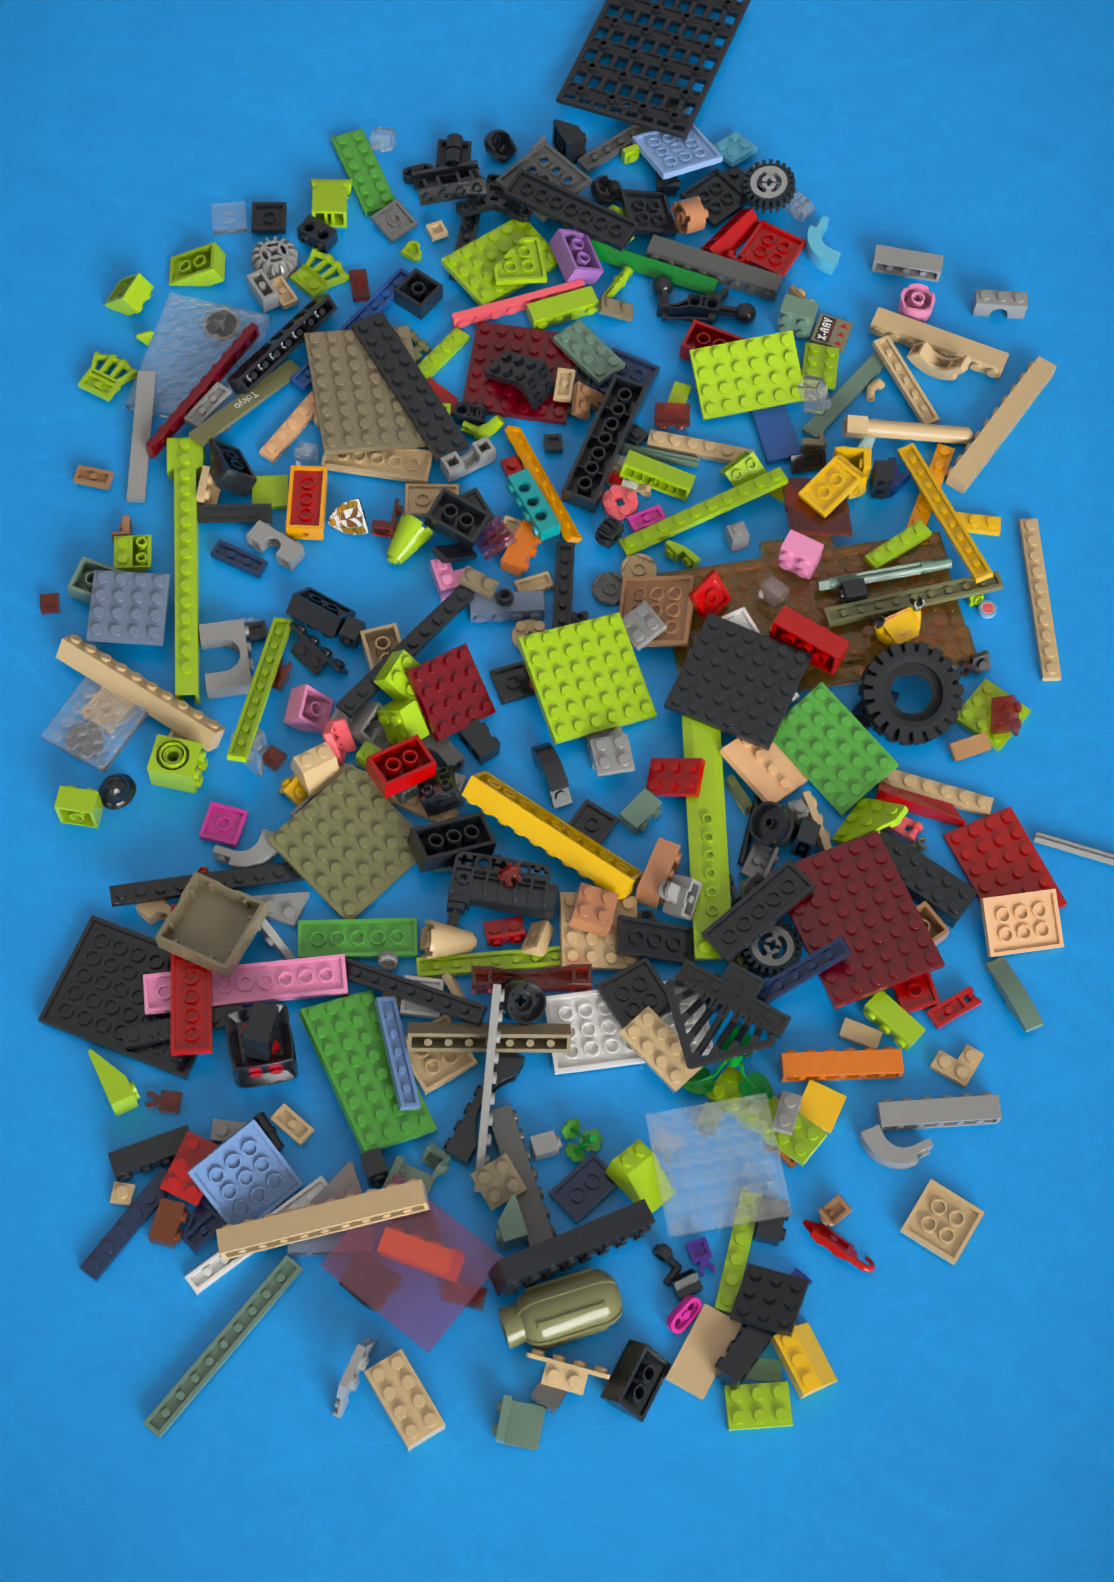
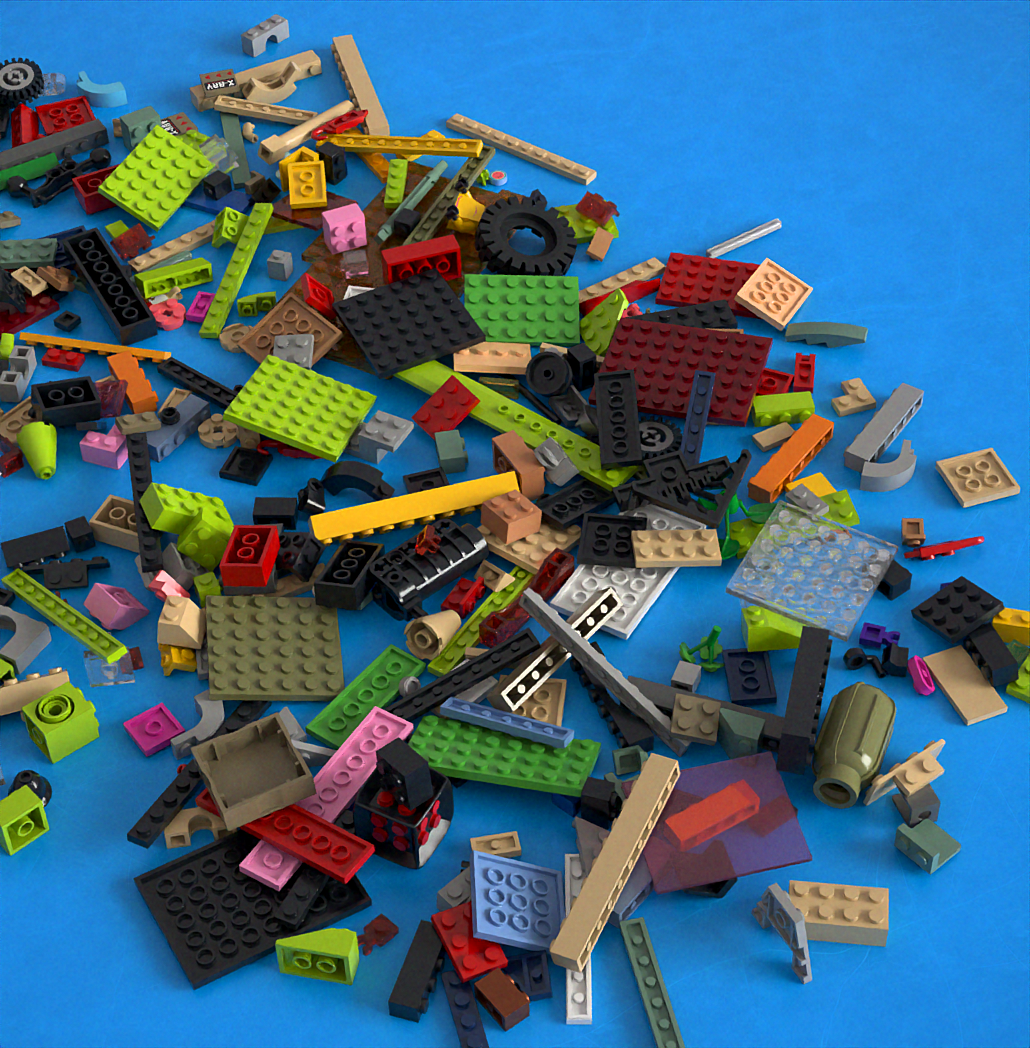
camera: 45 degrees left, 20 degrees down
(122, 1193) = (436, 1023): tan plate -> none
(450, 692) = (216, 491): dark red plate -> none
(508, 757) = (312, 498): none -> black piece
(529, 1005) = (553, 597): black wheel -> none
(543, 528) = (111, 351): teal brick -> none
(607, 588) = (233, 363): dark grey tile -> none
(609, 532) = (187, 329): black gear -> none
(635, 1380) = (962, 749): black slope -> none
(734, 1266) = (906, 623): lime plate -> none
(783, 420) = (217, 185): none -> black brick
(901, 323) = (219, 83): none -> dark tan tile
(907, 263) = (171, 59): light grey brick -> none
(916, 302) = (207, 64): bright pink brick -> none
(933, 449) = (340, 124): none -> red plate

